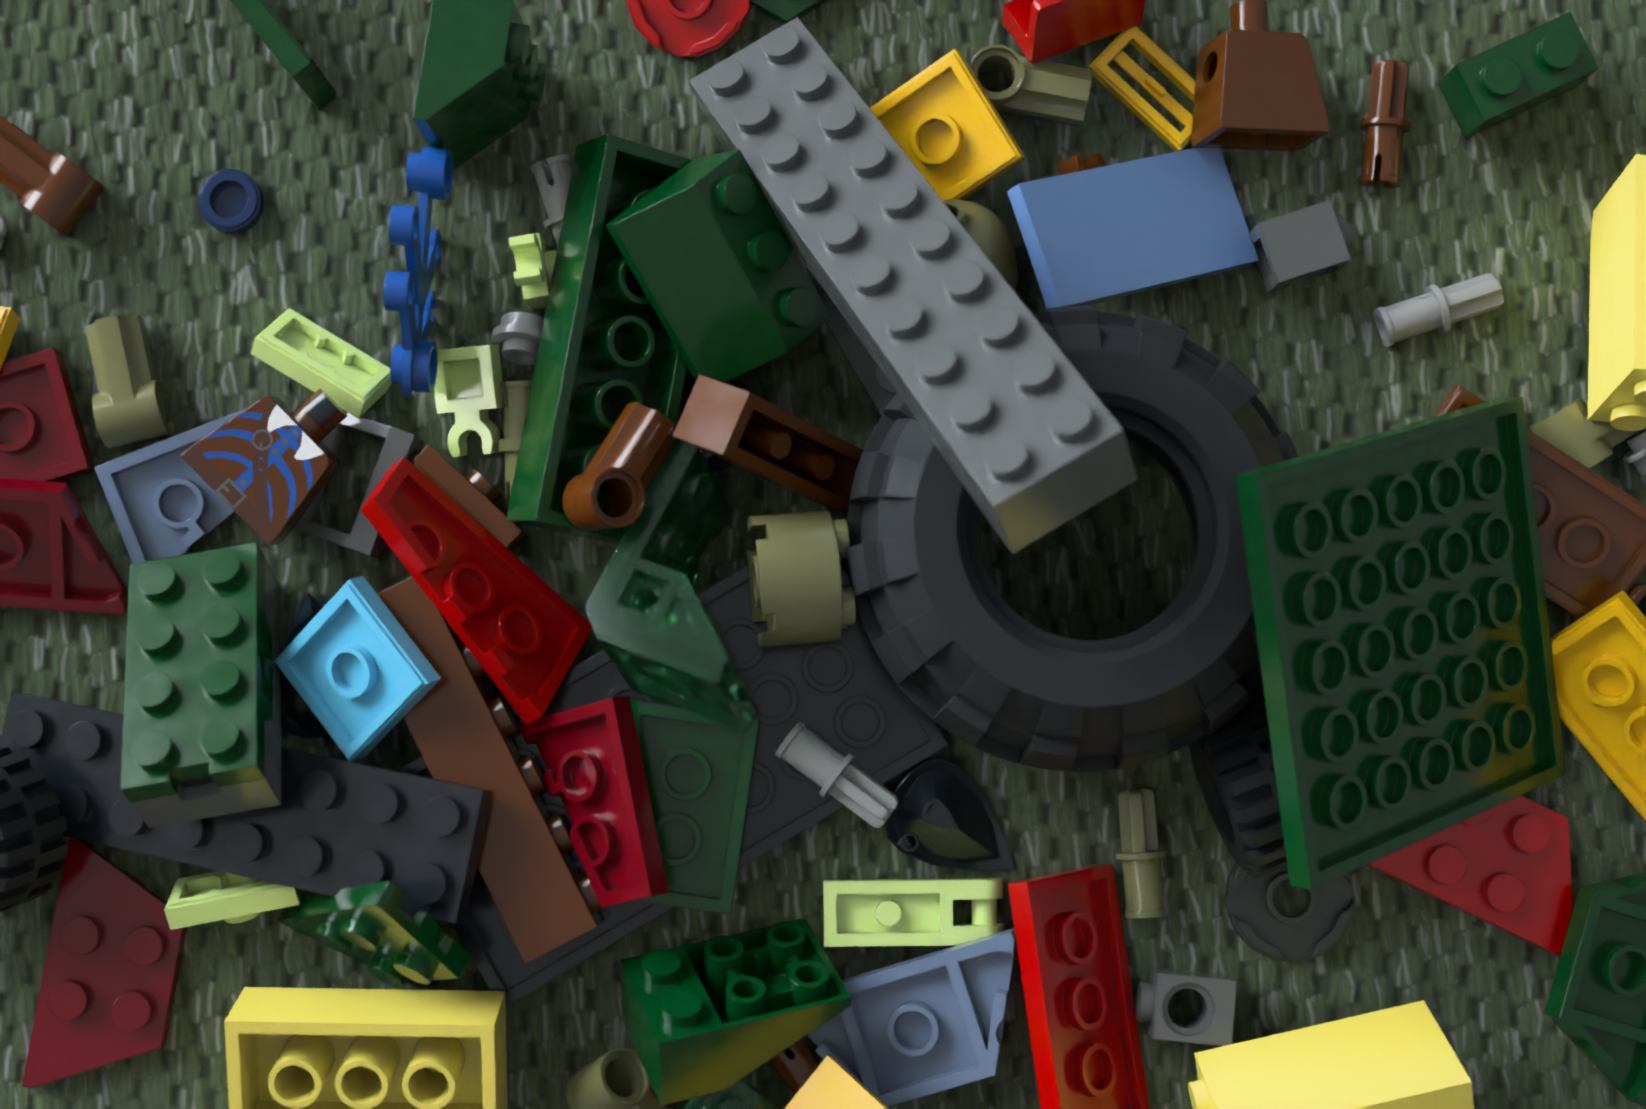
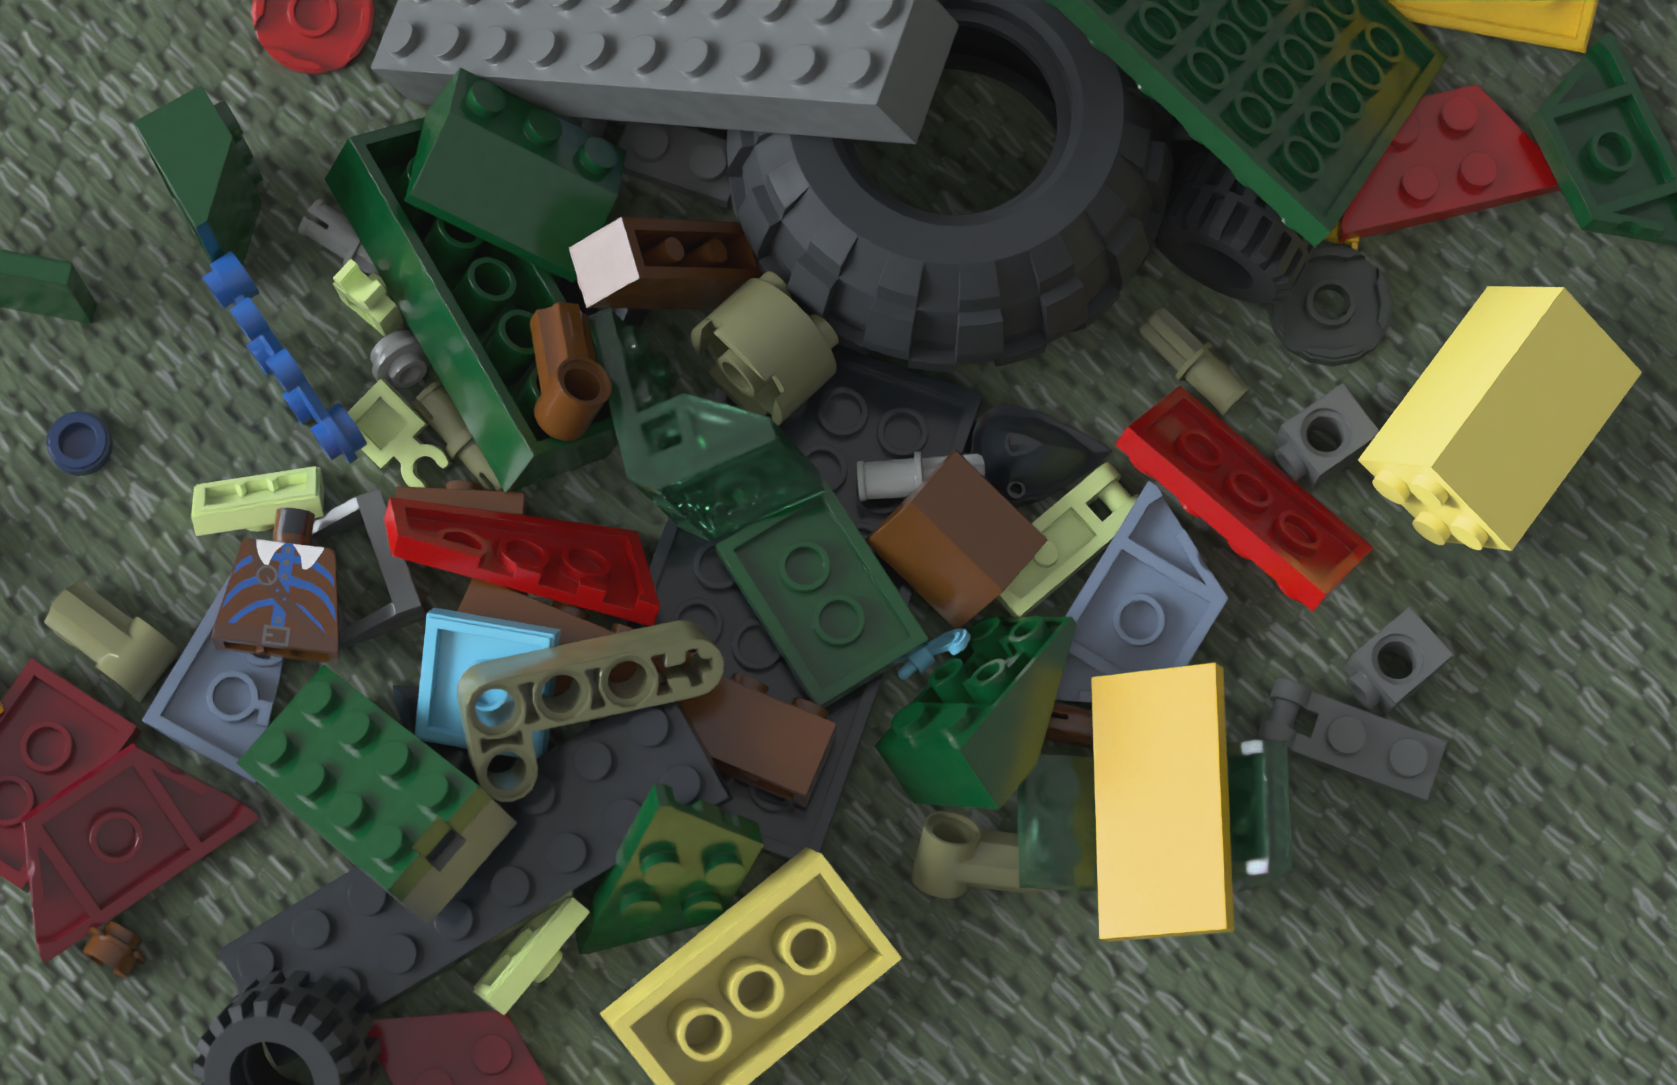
camera: 40 degrees left, 10 degrees down
(416, 752) = (586, 699): none -> olive beam
(602, 782) = (762, 623): dark red wing -> none
(749, 916) = (951, 641): none -> medium azure piece
(822, 853) = (957, 540): none -> reddish brown slope

